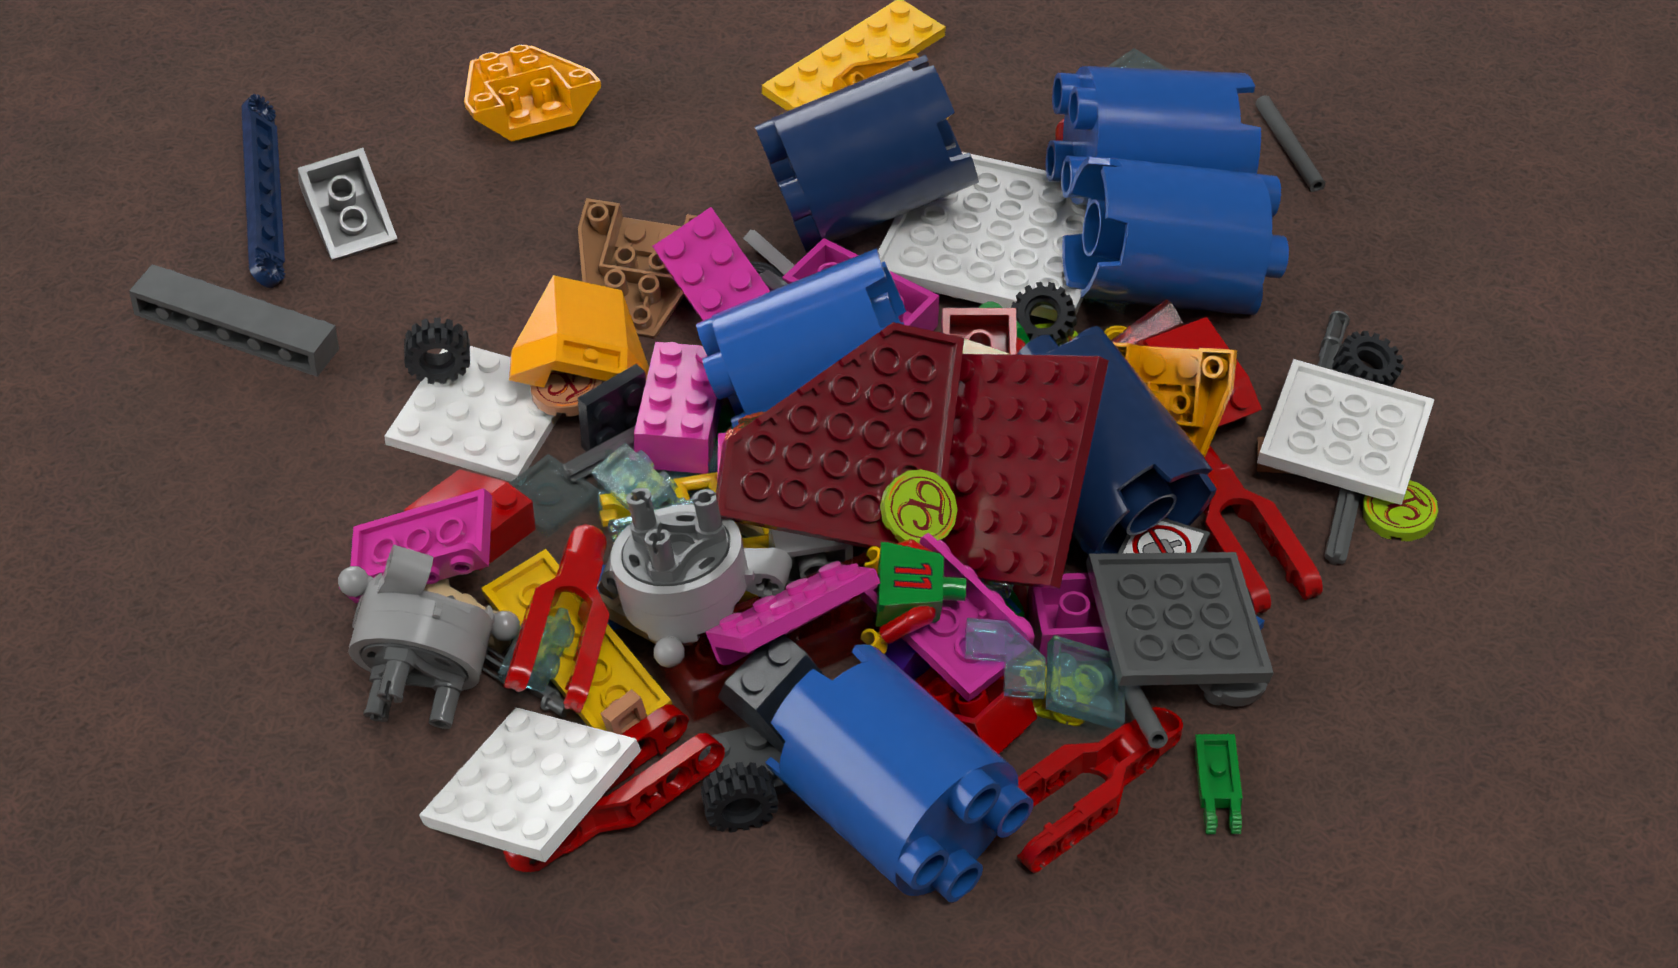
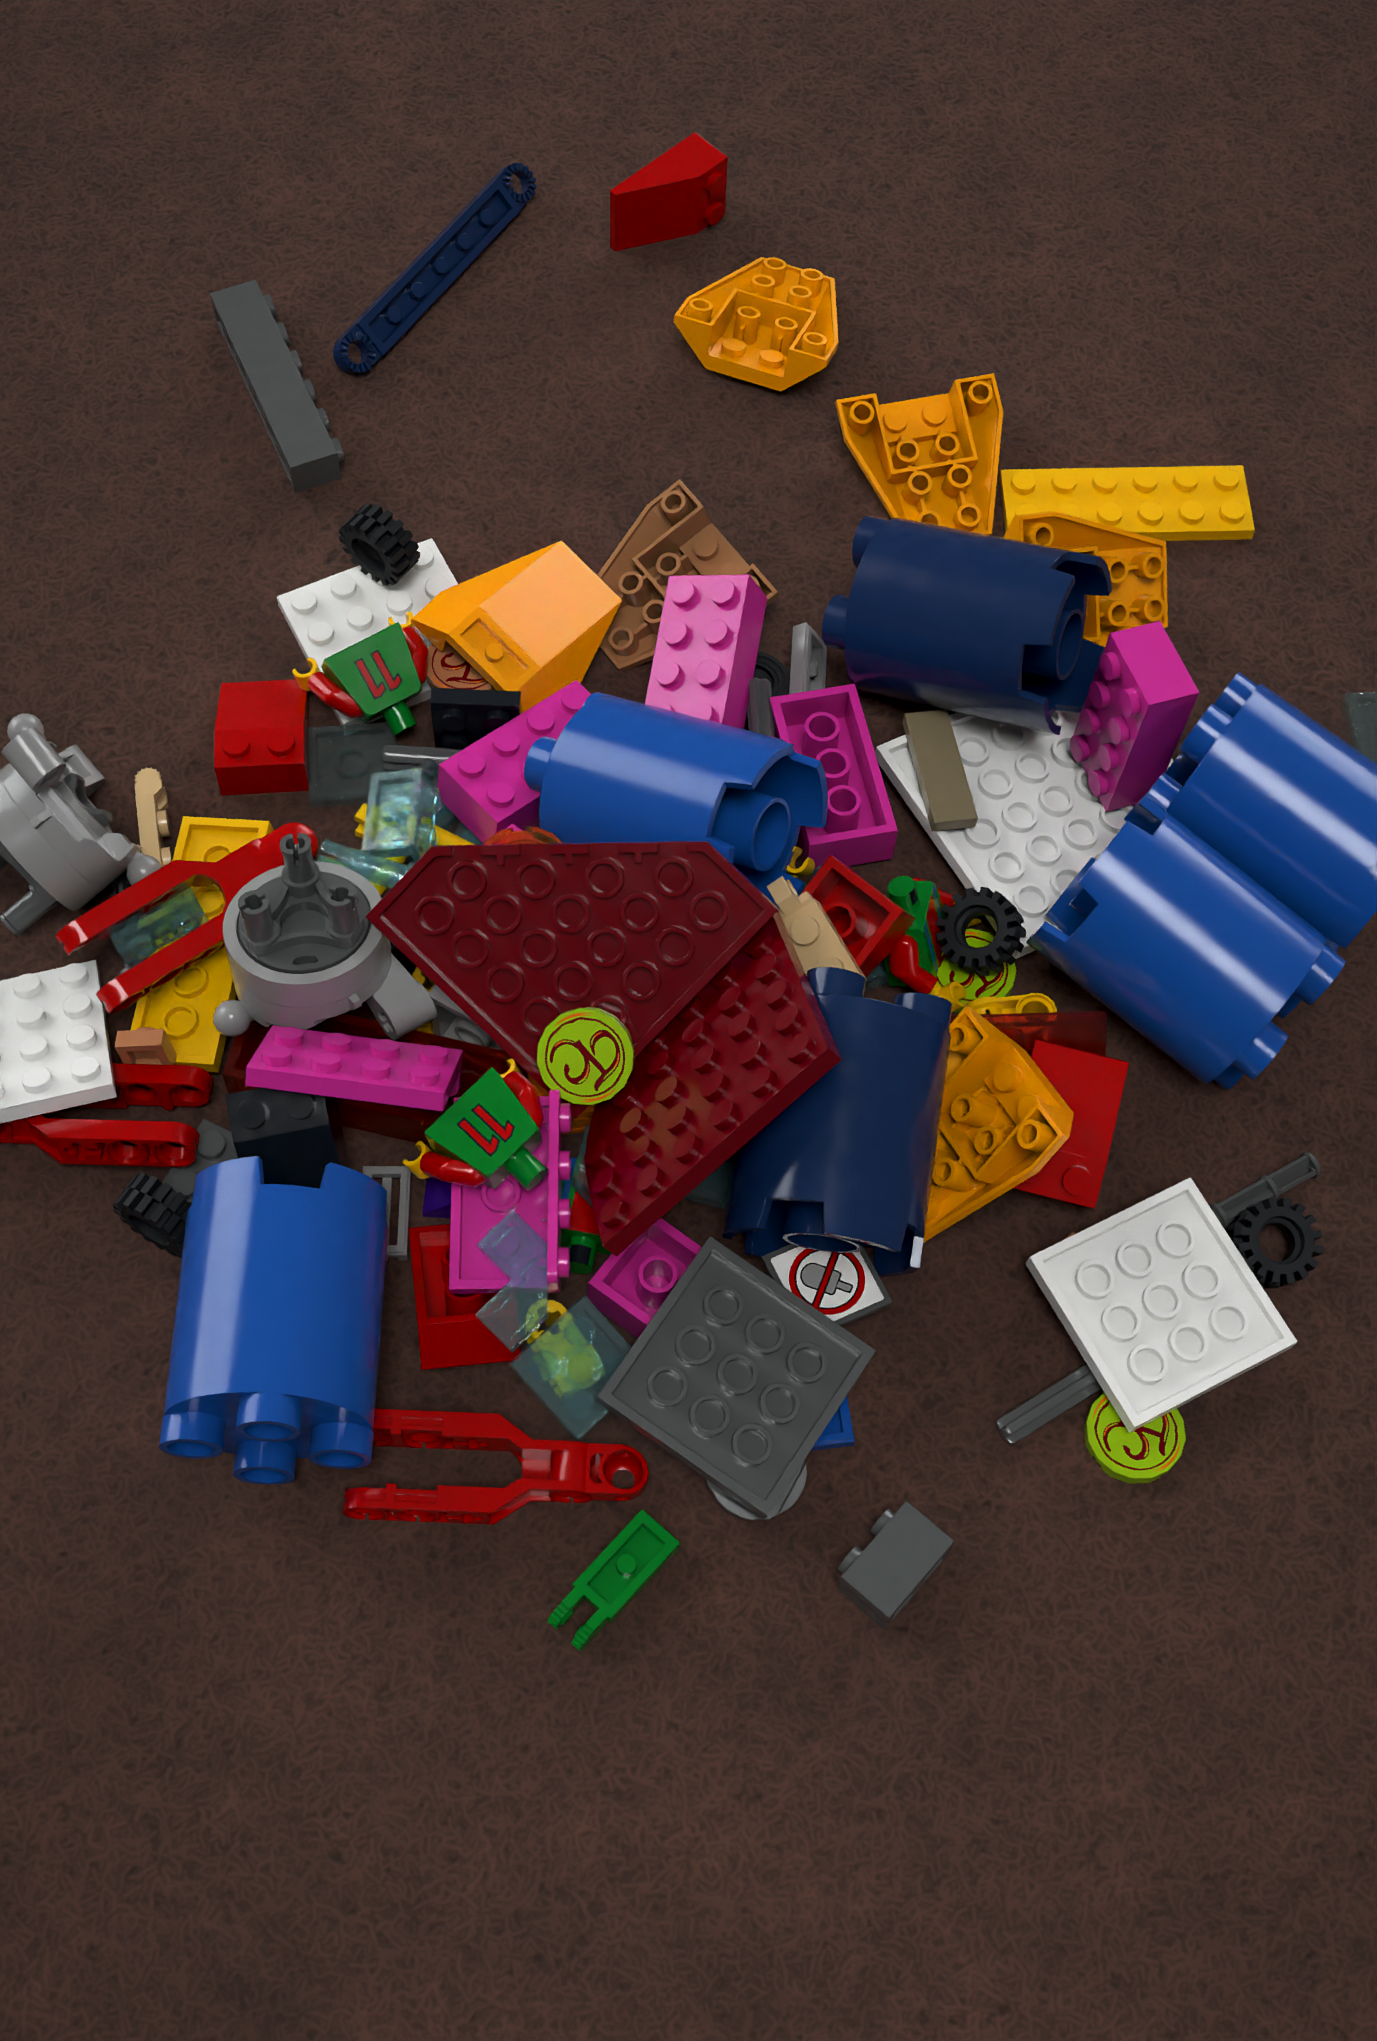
camera: 40 degrees right, 15 degrees up
(346, 204) = (486, 334): light grey slope -> none
(384, 51) = (670, 196): none -> red slope
(449, 530) = (163, 736): dark pink bracket -> none
(516, 429) = (373, 676): none -> green torso
(713, 98) = (932, 453): none -> light orange wedge
(923, 252) = (939, 770): none -> dark tan tile
(1018, 139) = (1133, 715): none -> dark pink brick
(1145, 716) = (590, 1458): dark grey piece -> none
(1269, 526) = (959, 1266): red piece -> none
(1356, 658) = (893, 1564): none -> dark grey brick

